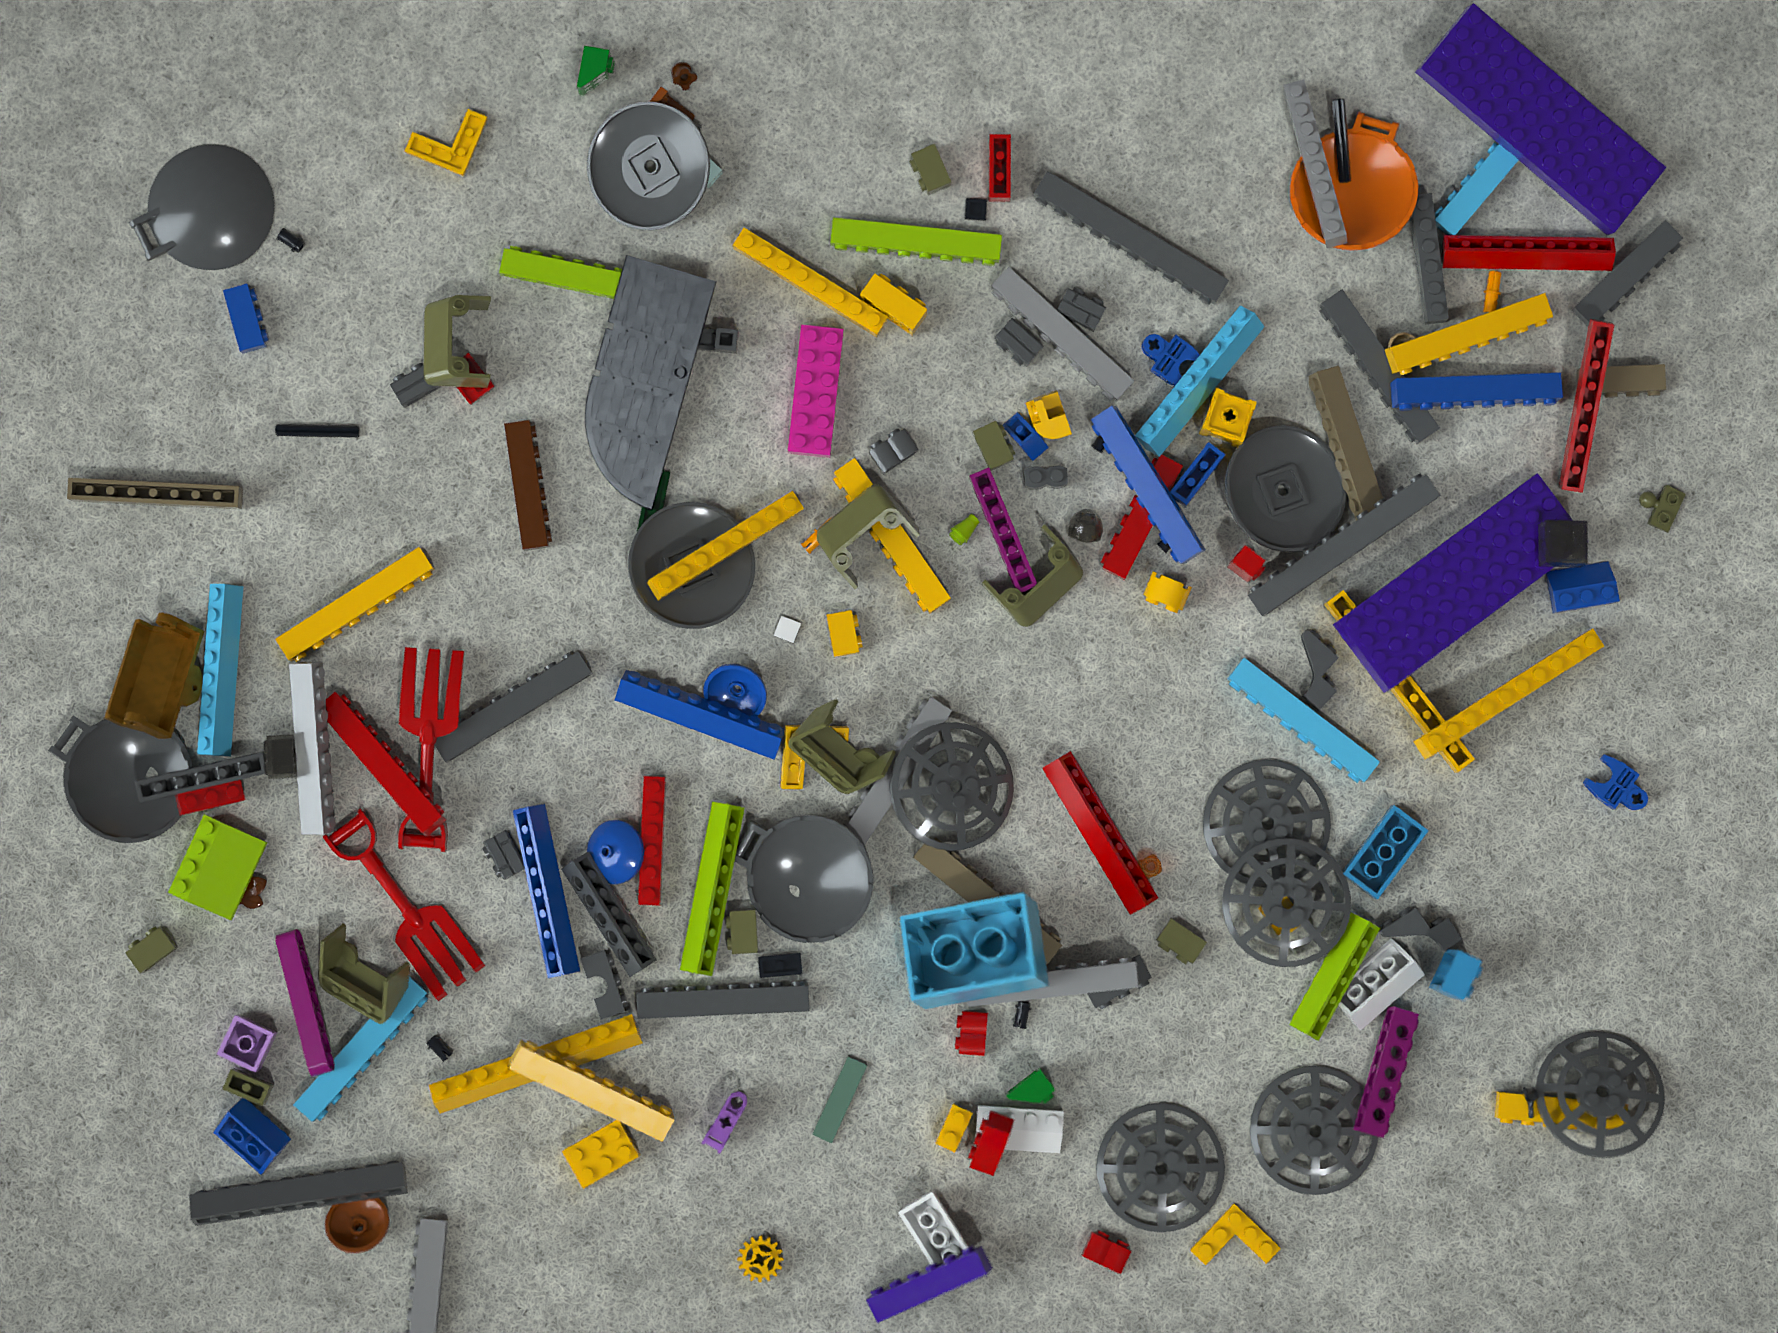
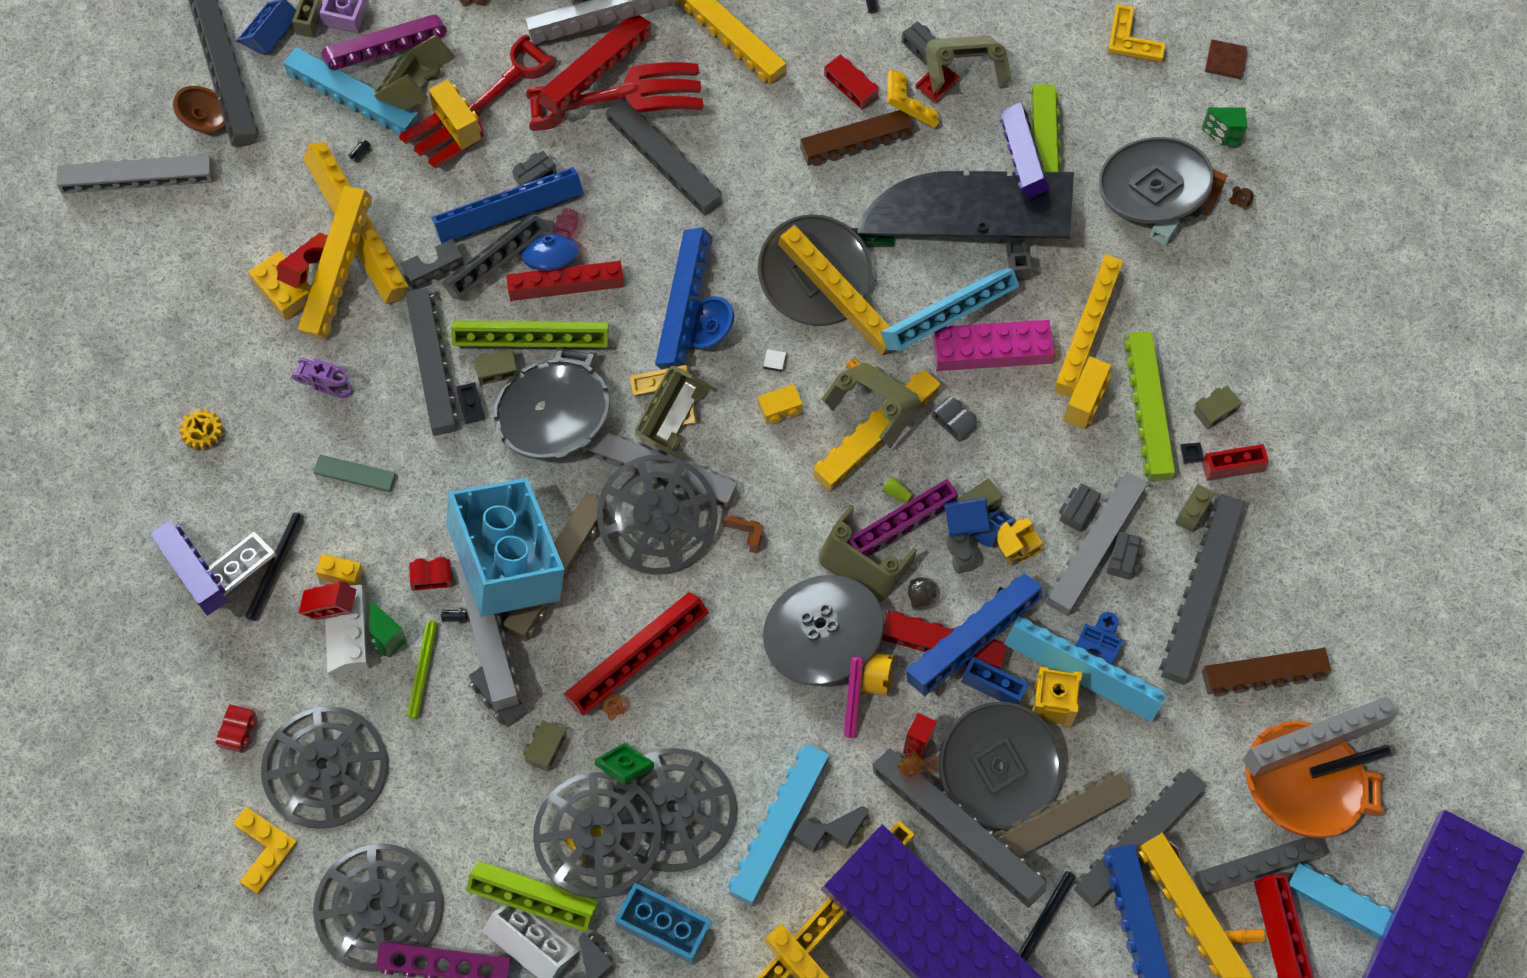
camera: 80 degrees right, 20 degrees down
(426, 932) = (455, 114): none -> yellow brick
(452, 476) = (851, 81): none -> red brick
(495, 428) = (898, 98): none -> yellow plate
(498, 44) = (1226, 59): none -> copper tile
(578, 829) = (566, 223): none -> clear pink brick
(588, 303) = (1024, 151): none -> brick
(599, 1134) = (295, 267): none -> red arch
(772, 429) = (949, 309): none -> medium azure brick
(921, 1189) = (274, 566): none -> black axle
(993, 690) = (751, 526): none -> dark orange bracket
(1016, 463) = (967, 516): none -> blue slope
(1042, 223) = (1195, 508): none -> olive brick
(1074, 1055) = (422, 670): none -> lime axle
(1118, 608) = (823, 654): none -> dark grey dish
(1191, 621) = (853, 697): none -> dark pink axle
(1217, 864) = (624, 763): none -> green tile
(1231, 197) = (1266, 671): none -> reddish brown brick
(1275, 579) = (910, 765): none -> clear orange brick
(1439, 478) = (1046, 915): none -> black axle

